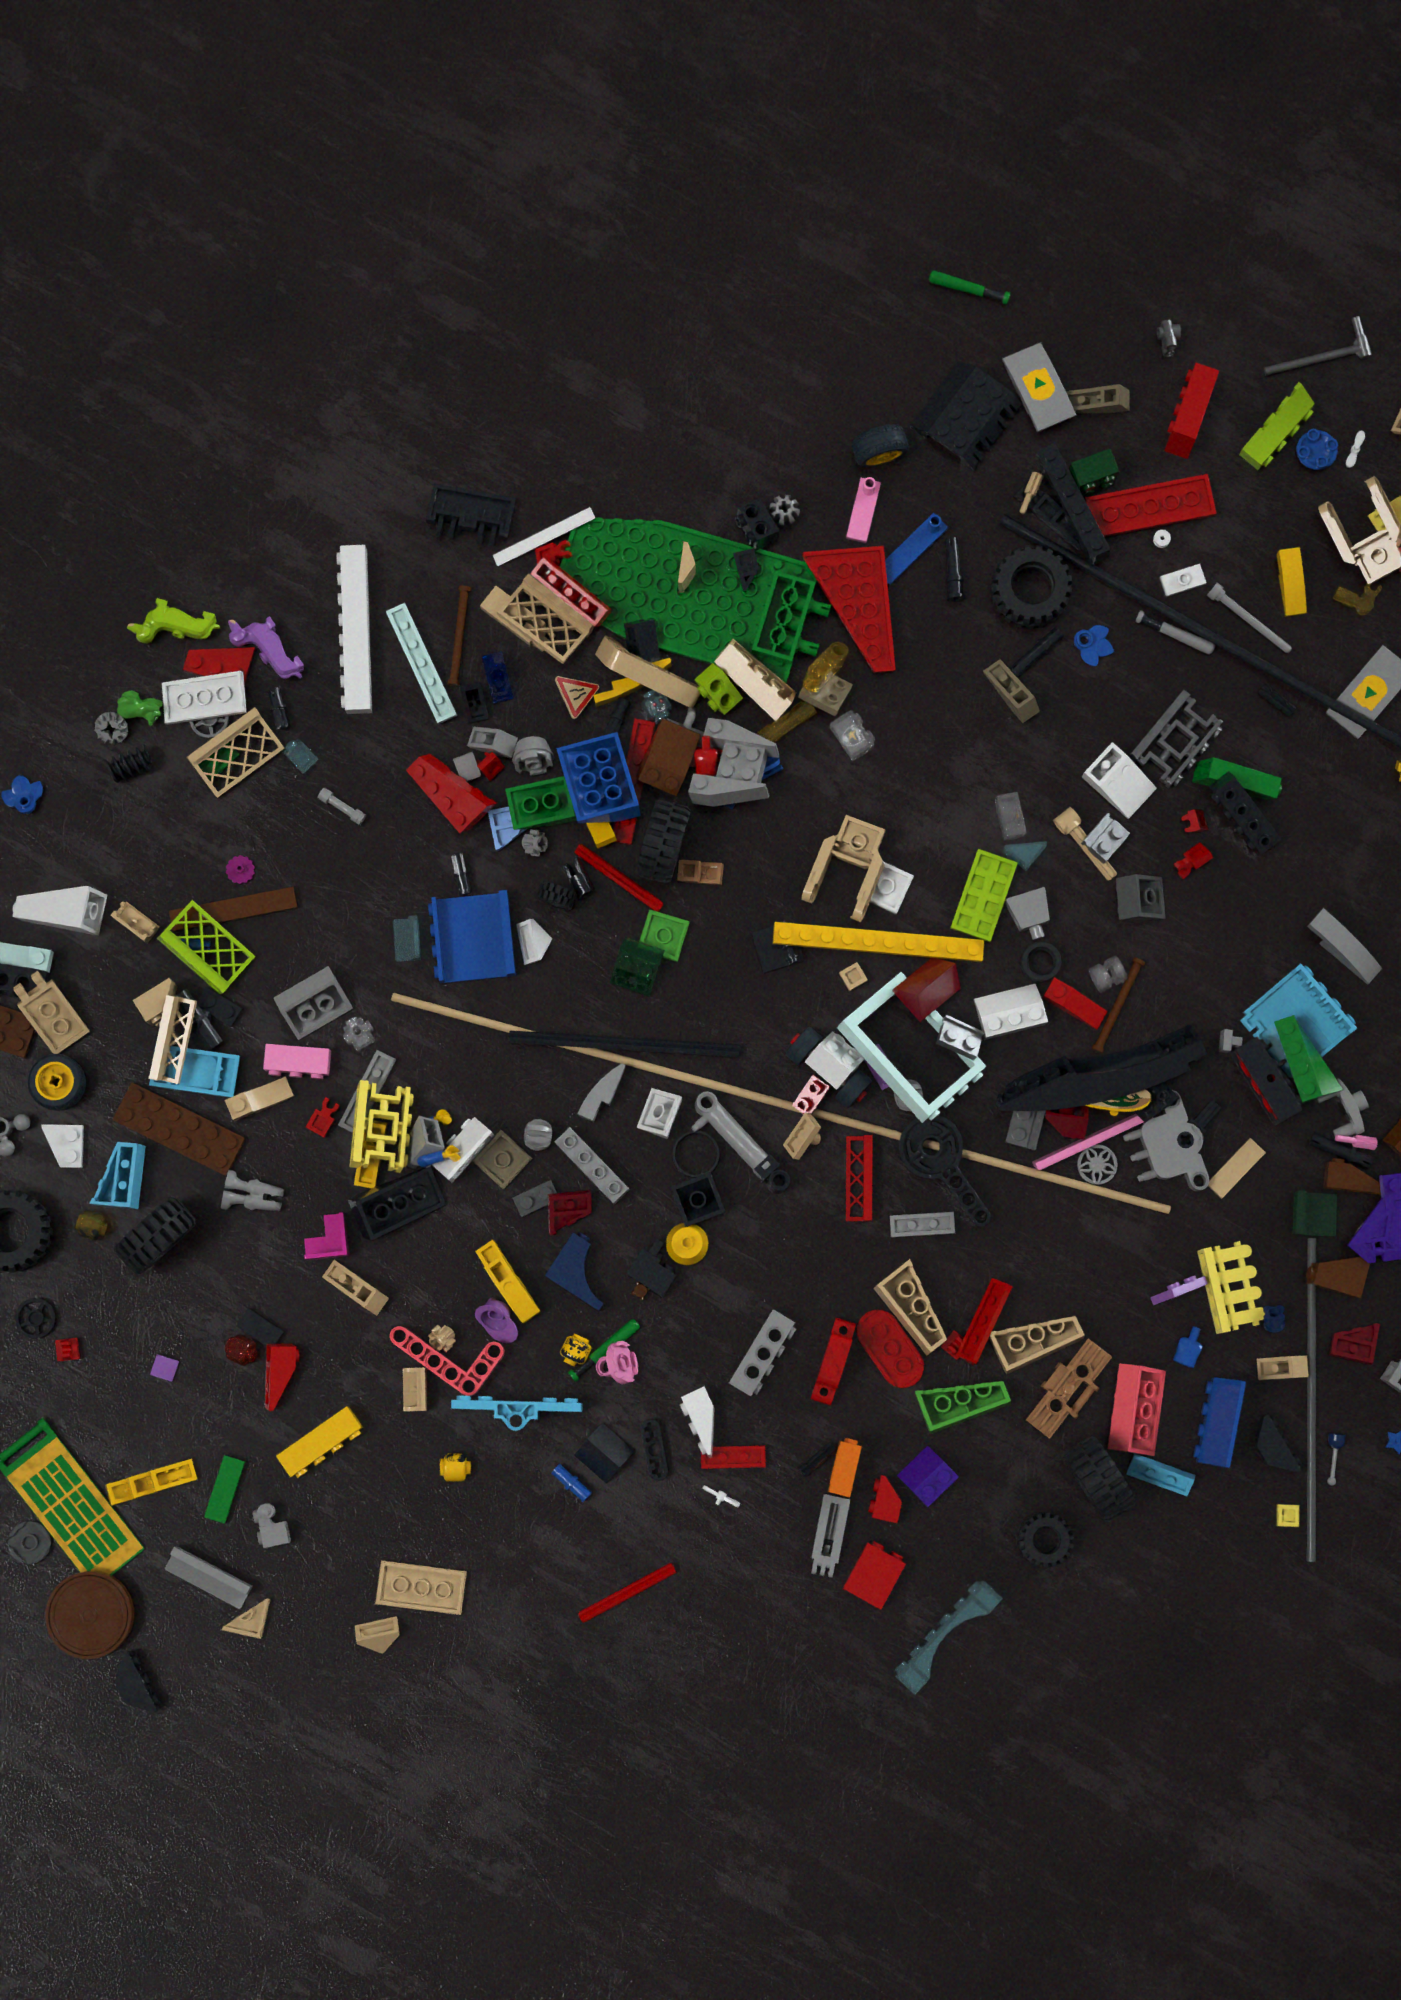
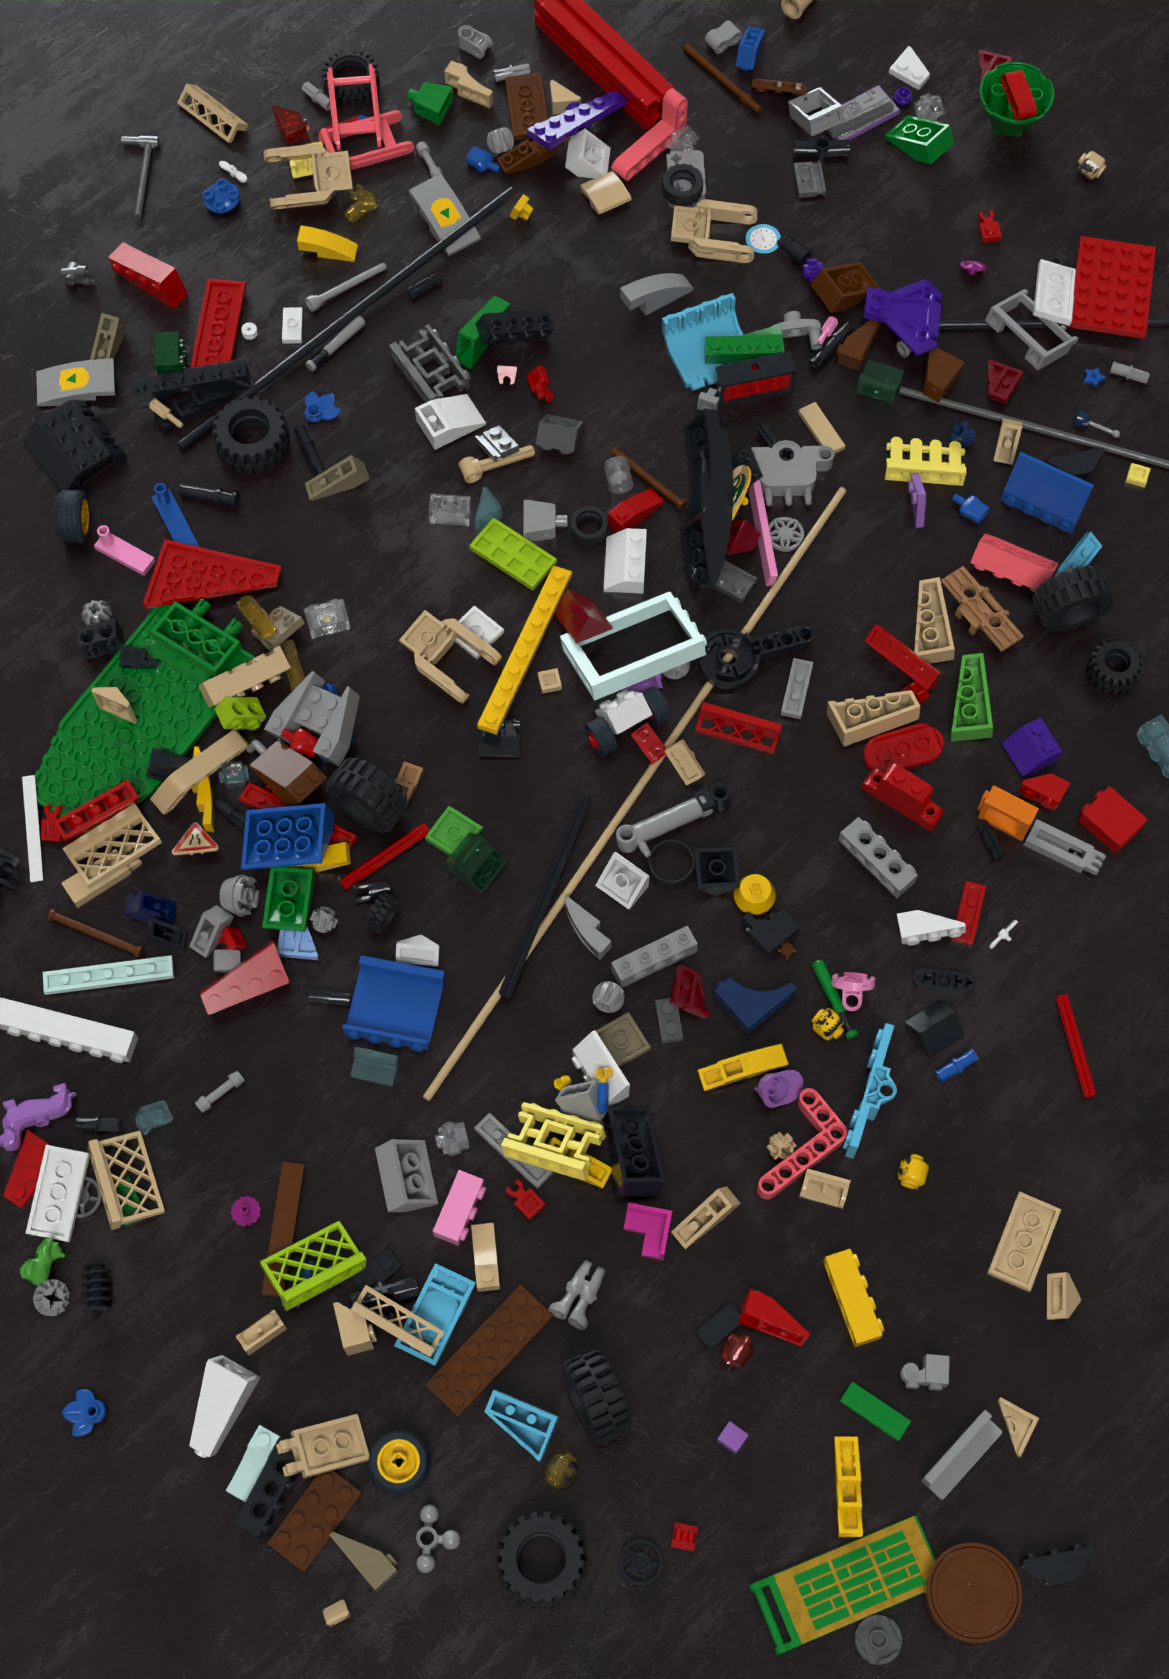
camera: 75 degrees left, 15 degrees down
(66, 1144) = (466, 1474): white wing -> none
(959, 1037) = (637, 603): plate -> none
(1278, 428) = (190, 216): lime wedge -> none

